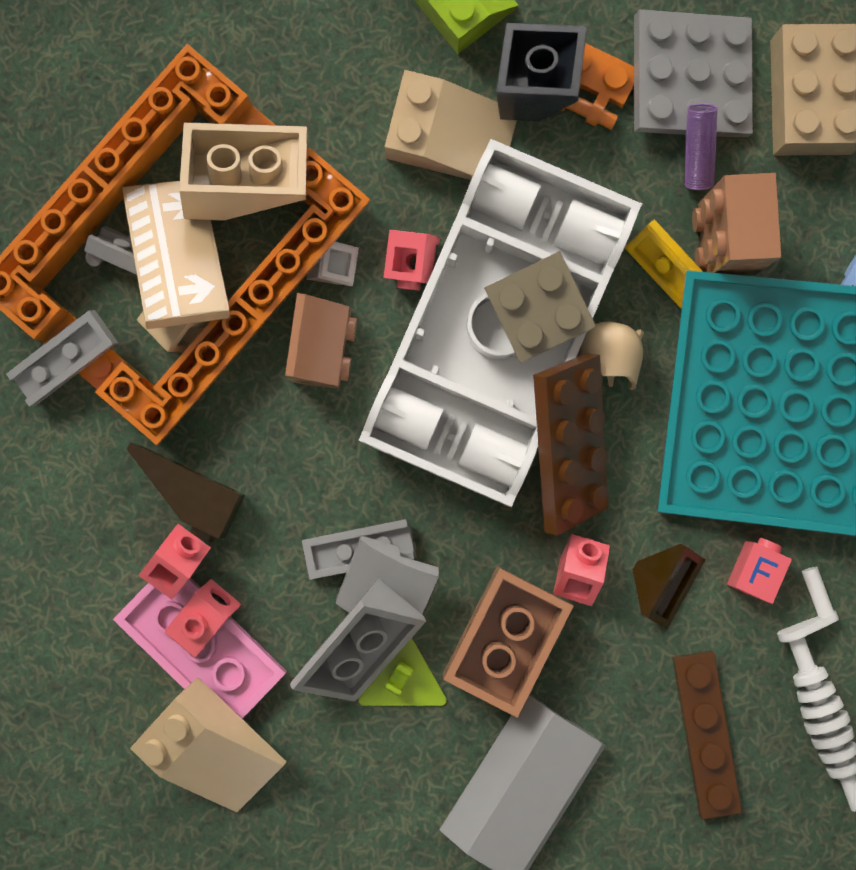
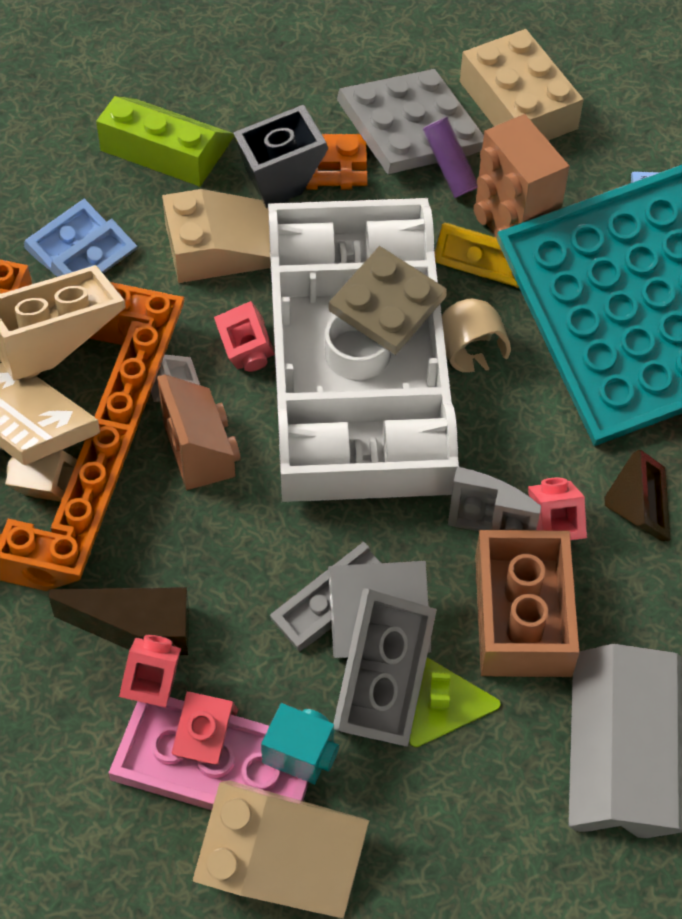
camera: 25 degrees left, 30 degrees down
(262, 679) = (299, 743): none -> teal brick
(315, 76) = (79, 241): none -> light blue slope
(530, 557) = (490, 504): none -> light grey slope
(571, 442) = (482, 398): reddish brown plate -> none

